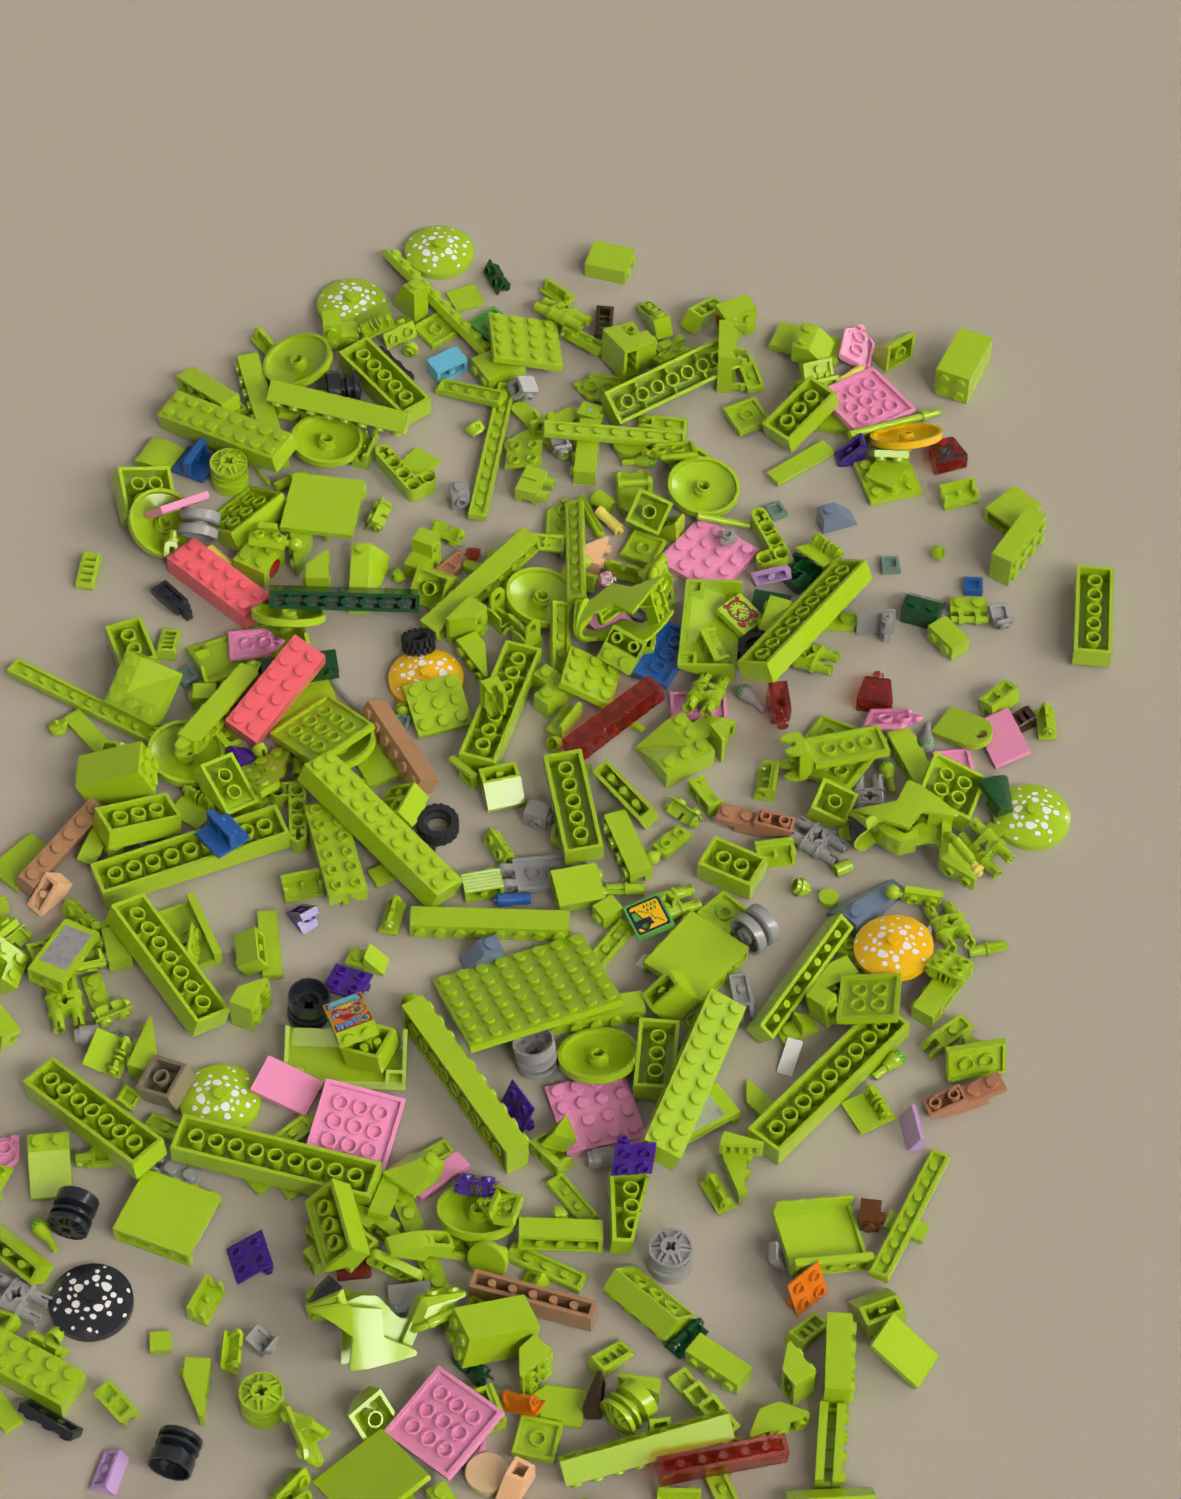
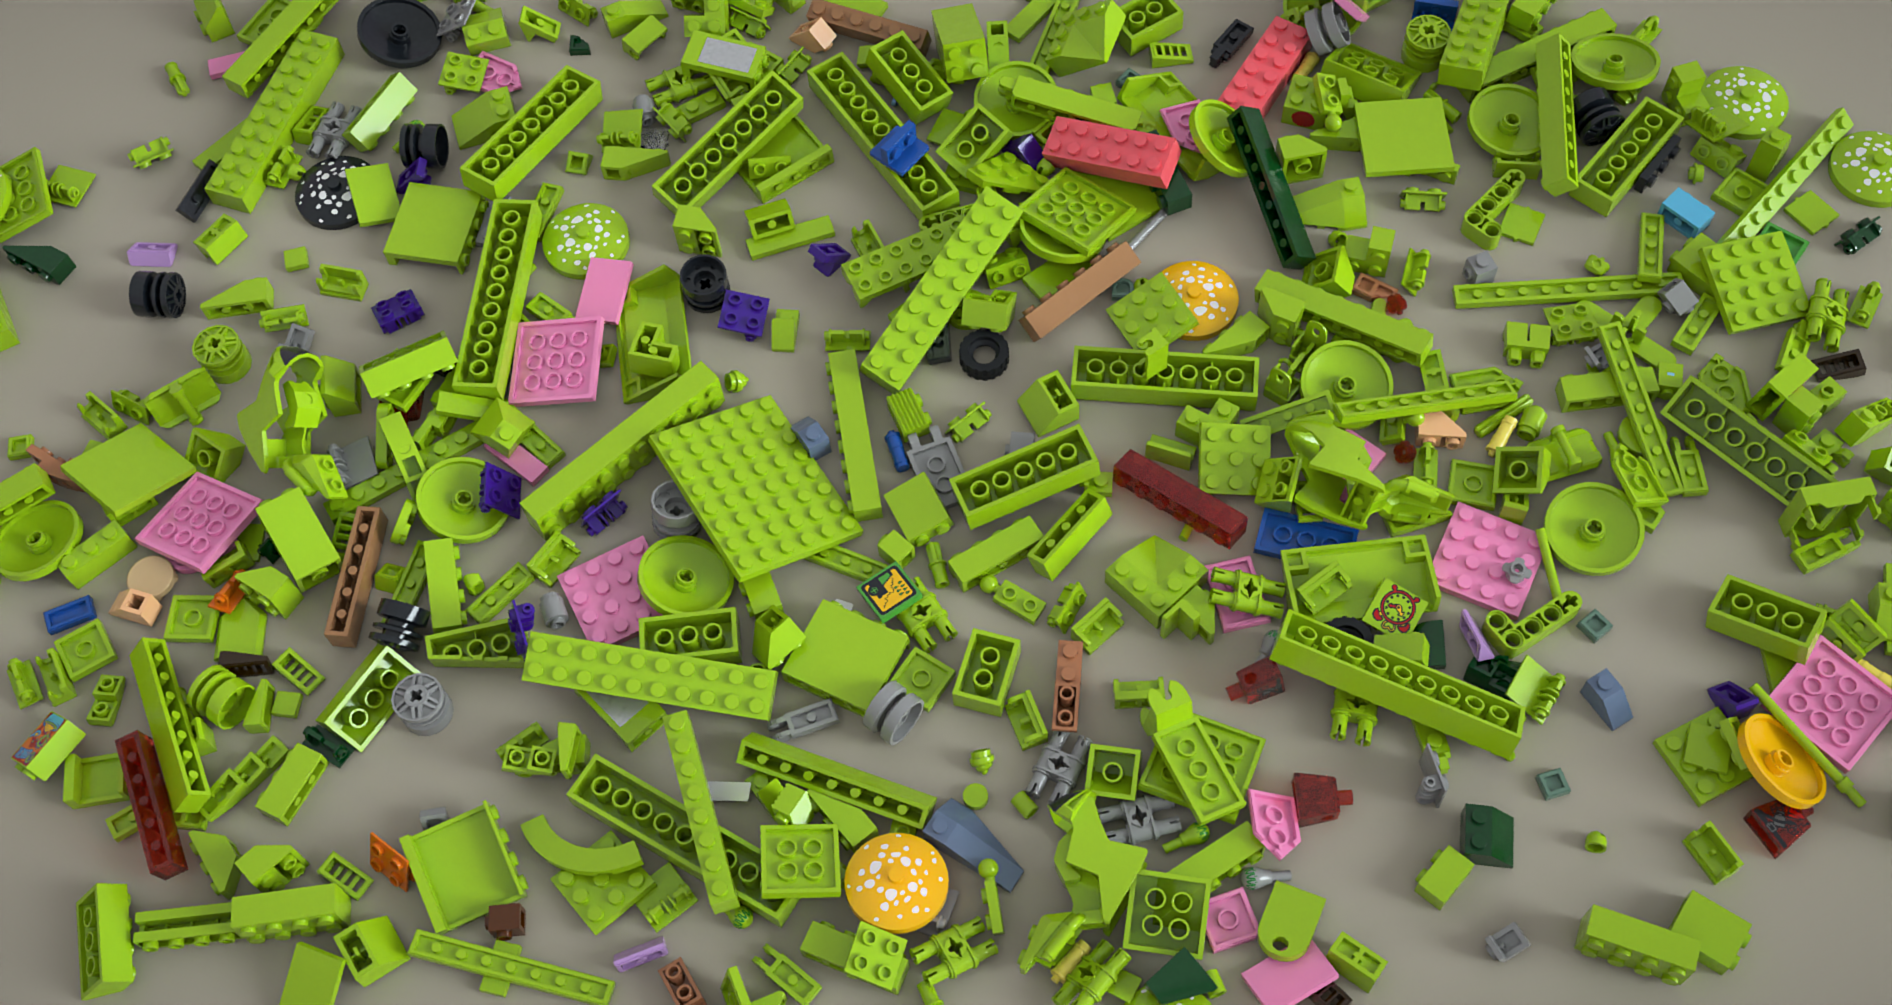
camera: 85 degrees right, 10 degrees up
(101, 1230) = (414, 173): none -> dark purple slope
(112, 1264) = (373, 194): none -> lime tile
(165, 1082) = (587, 183): dark tan brick -> none
(350, 1020) = (674, 318): brick -> none
(418, 642) = (1248, 276): black tyre -> none
(465, 773) = (1064, 360): lime tile -> none
(501, 1208) = (461, 518): lime slope -> none
(548, 388) = (1696, 324): none -> lime plate
(552, 741) = (1136, 445): lime hinge -> none
(560, 1136) = (569, 559): lime slope -> none
(595, 1261) = (399, 625): none -> black wheel
(640, 1366) = (287, 704): none -> lime tile
(742, 1177) = (529, 760): none -> lime slope
(746, 416) = (1746, 558): lime plate -> none
(757, 1099) = (657, 767): lime tile -> none
(800, 463) = (1691, 641): lime tile -> none
(817, 1054) = (701, 812): none -> lime brick
(829, 1159) = (576, 858): none -> lime tile
(849, 1148) = (605, 896): none -> lime plate
(968, 610) = (1513, 896): lime plate -> none
(973, 586) = (1553, 899): blue tile -> none

